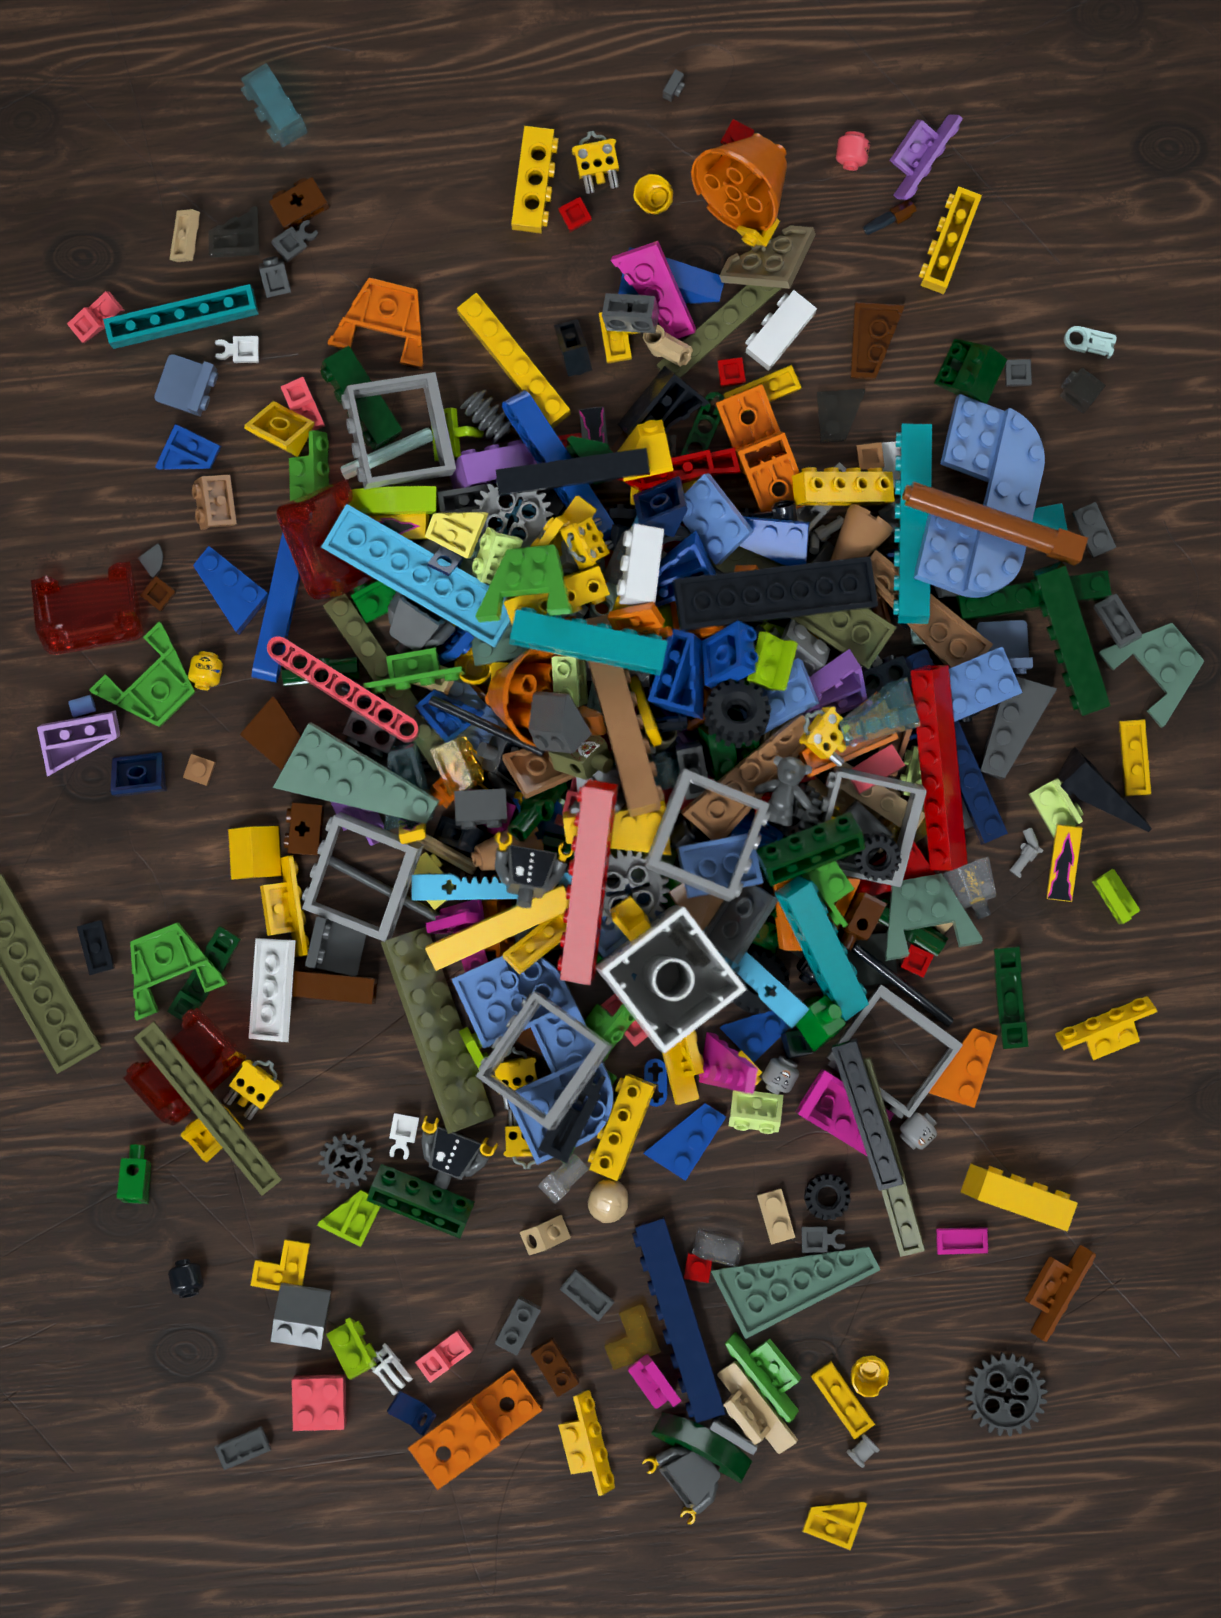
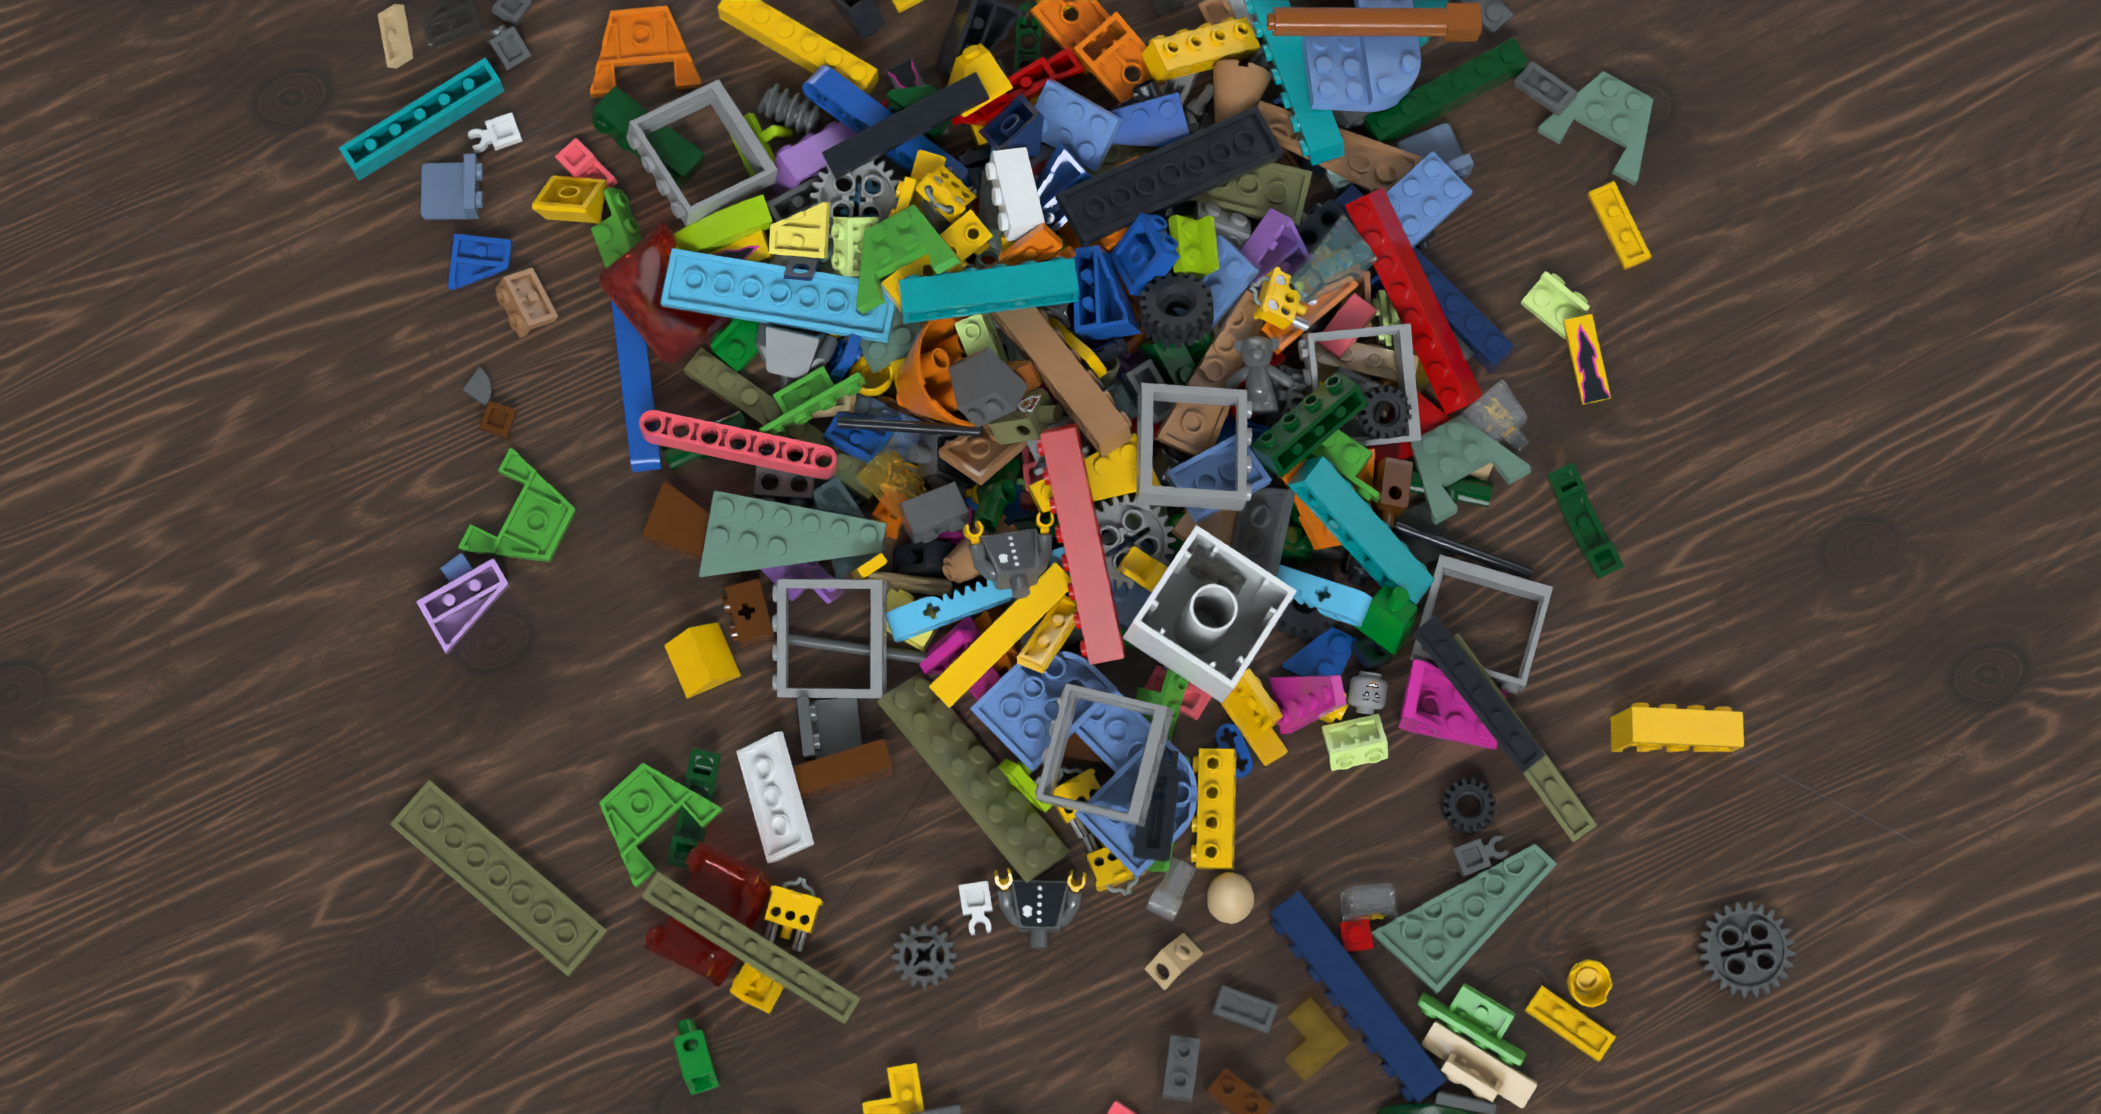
camera: 20 degrees left, 10 degrees down
(87, 612) = (430, 465): clear red windscreen -> none
(90, 320) = (326, 157): coral slope -> none
(95, 947) = (562, 823): black plate -> none
(138, 774) = (544, 621): dark blue slope -> none
(199, 770) = (609, 592): medium nougat plate -> none
(205, 670) = (579, 482): yellow head -> none
(232, 590) = (576, 384): blue wedge -> none
(283, 907) = (755, 703): yellow bracket -> none
(352, 1218) = (954, 1017): lime wing -> none
(390, 451) = (699, 183): light aqua axle -> none
(420, 1201) = (1023, 969): dark green brick -> none
(653, 1382) = (1355, 1076): dark pink bracket -> none
(686, 1142) = (1292, 803): blue wing -> none
(776, 1216) = (1420, 849): tan plate -> none
(863, 1450) = (1614, 1069): light grey bush -> none
(917, 961) = (1469, 519): red plate -> none
(918, 1130) = (1540, 698): light grey head -> none
(962, 1240) = (1633, 802): dark pink tile -> none
(967, 1070) = (1567, 617): orange wing -> none
(1012, 726) = (1475, 235): dark grey wedge -> none
(1028, 852) = (1544, 364): light grey piece -> none
(1056, 1288) = (1755, 816): dark orange bracket -> none
(1071, 638) = (1502, 119): dark green brick -> none
(1084, 780) = (1579, 263): black wedge -> none
(1109, 1030) = (1705, 520): yellow bracket -> none
(1116, 896) = (1655, 375): lime bracket -> none

